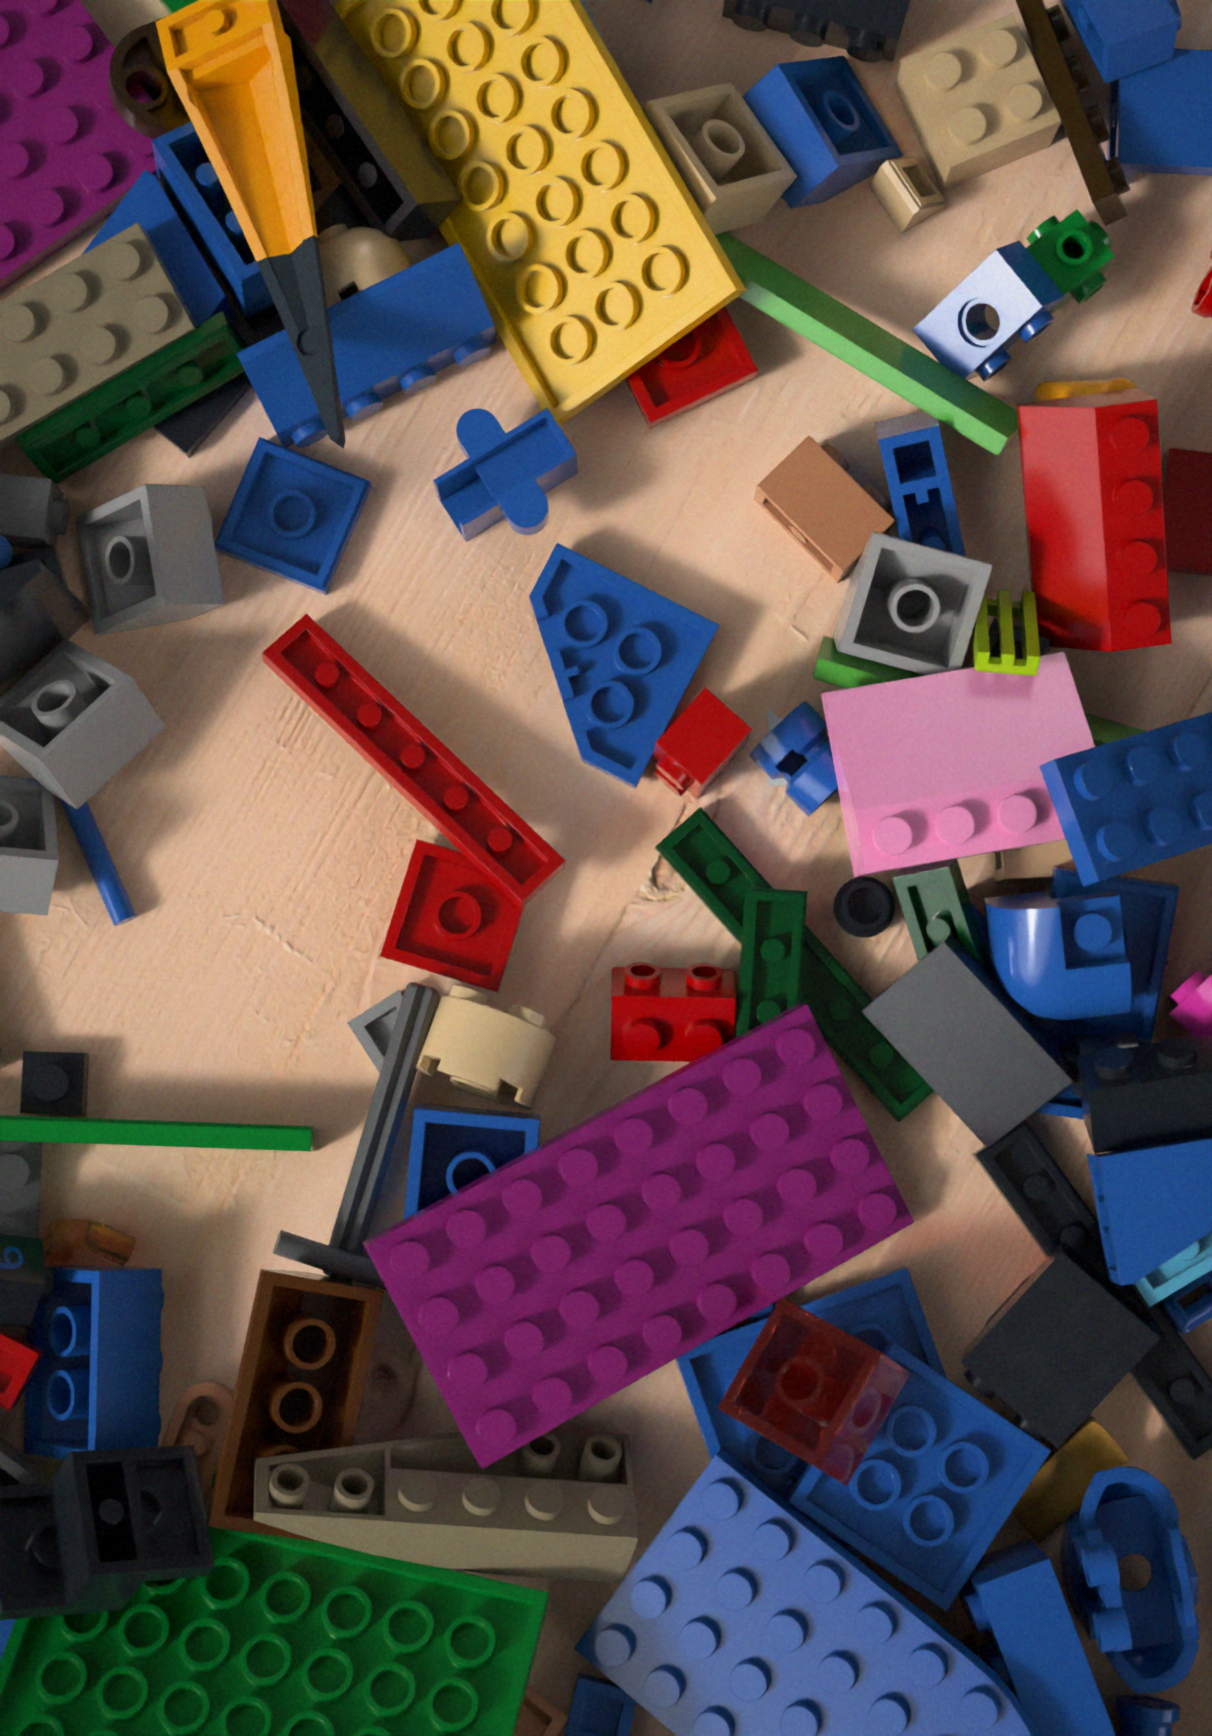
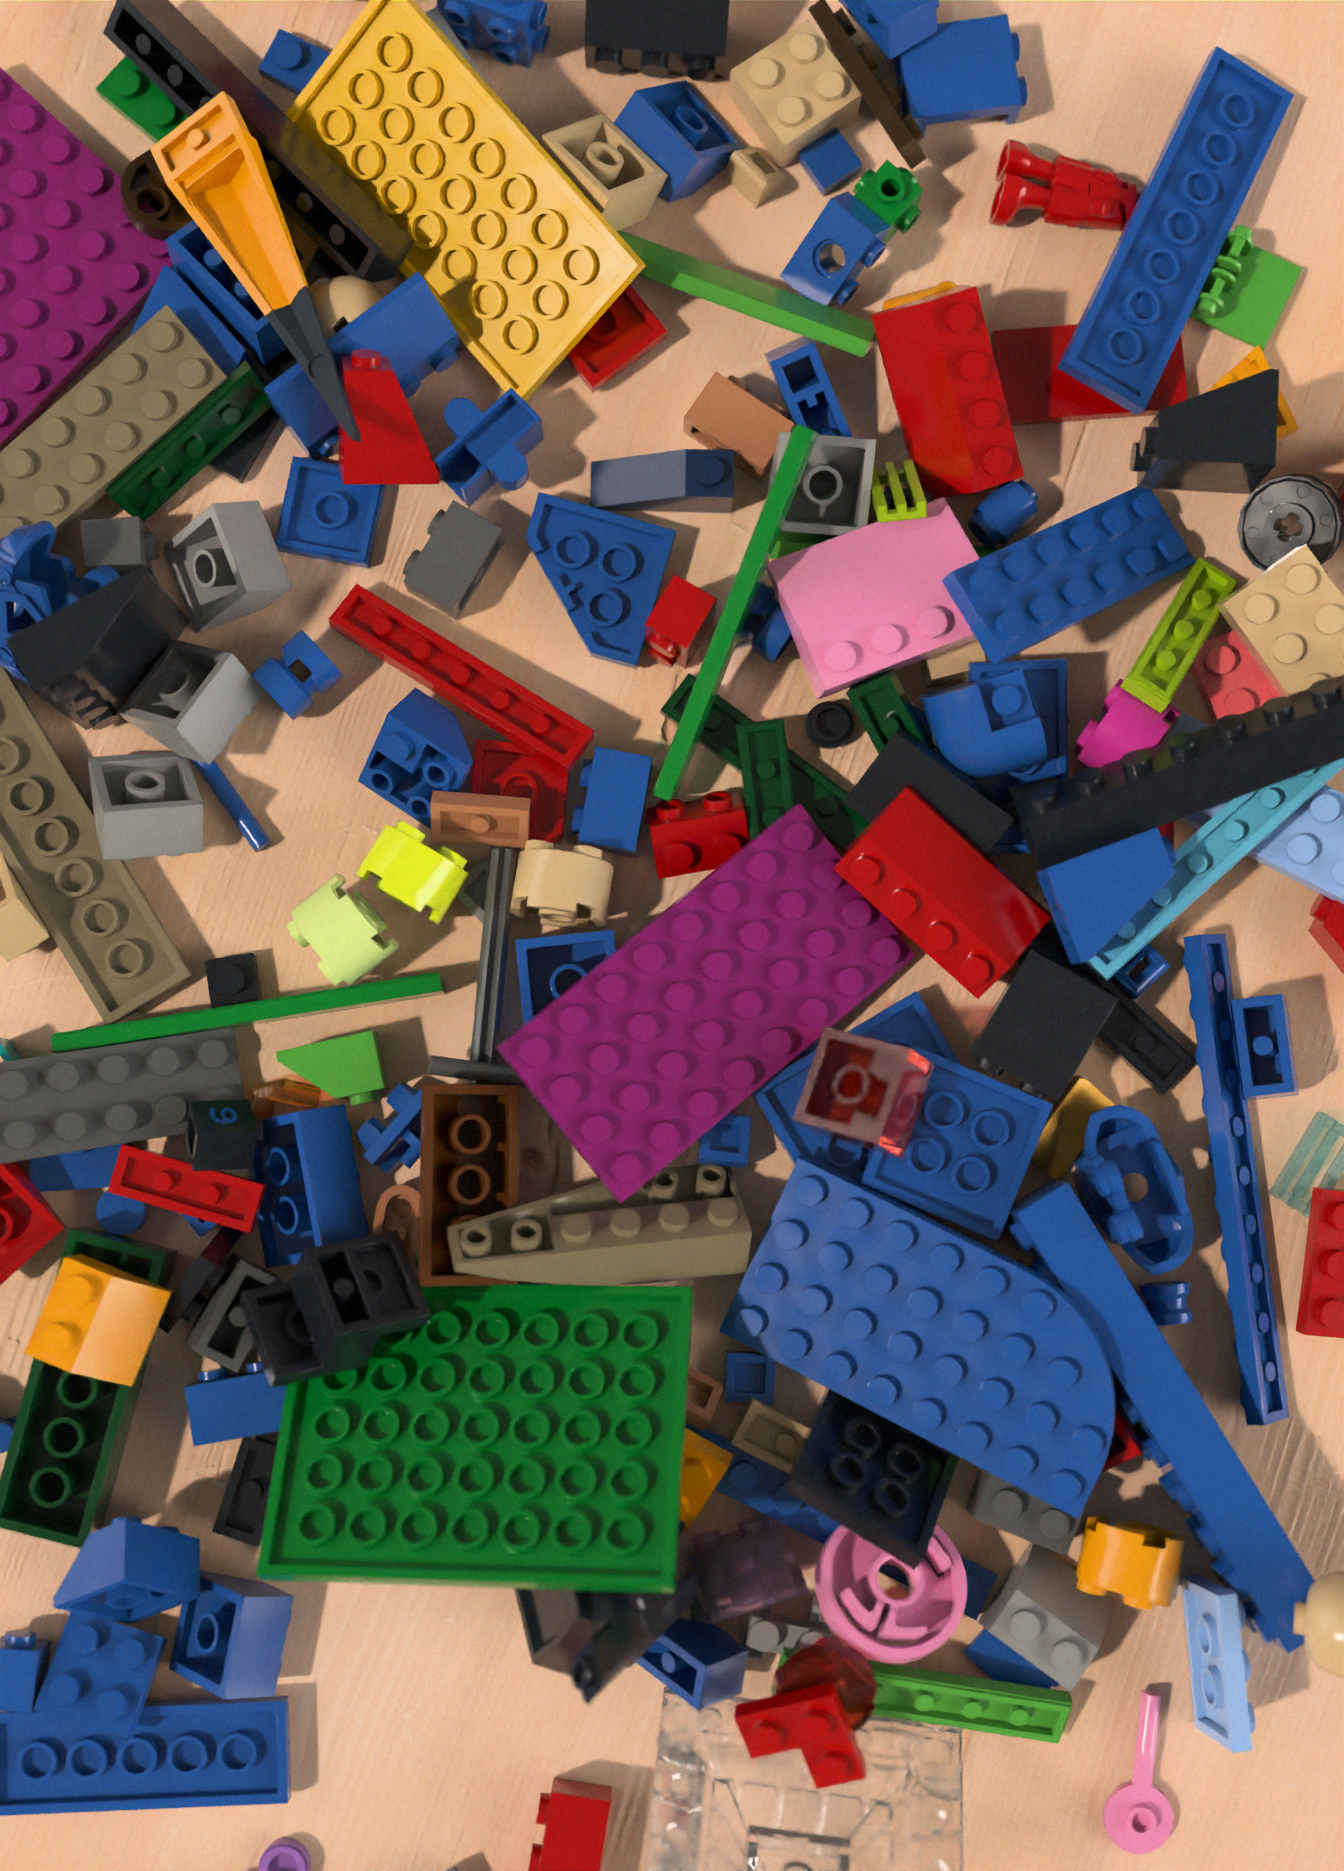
camera: 15 degrees left, 0 degrees up
(167, 1220) = (342, 1066): none -> bright green slope
(189, 724) = (285, 687): none -> blue wheel
(200, 1051) = (341, 931): none -> yellowish green brick
(221, 1328) = (401, 1139): none -> blue hips
(304, 995) = (413, 871): none -> neon yellow brick
(341, 851) = (415, 754): none -> blue slope
(384, 436) = (391, 440): none -> red slope
(401, 944) = (480, 819): none -> nougat plate
(432, 606) = (453, 559): none -> dark grey brick
(573, 951) = (613, 801): none -> blue brick
(630, 1413) = (726, 1142): none -> blue plate
(717, 560) = (665, 482): none -> slope
(772, 748) = (735, 611): none -> green tile
(964, 1152) = (942, 891): none -> red slope
(1005, 193) = (829, 161): none -> blue tile
(1137, 683) = (1004, 513): none -> blue brick

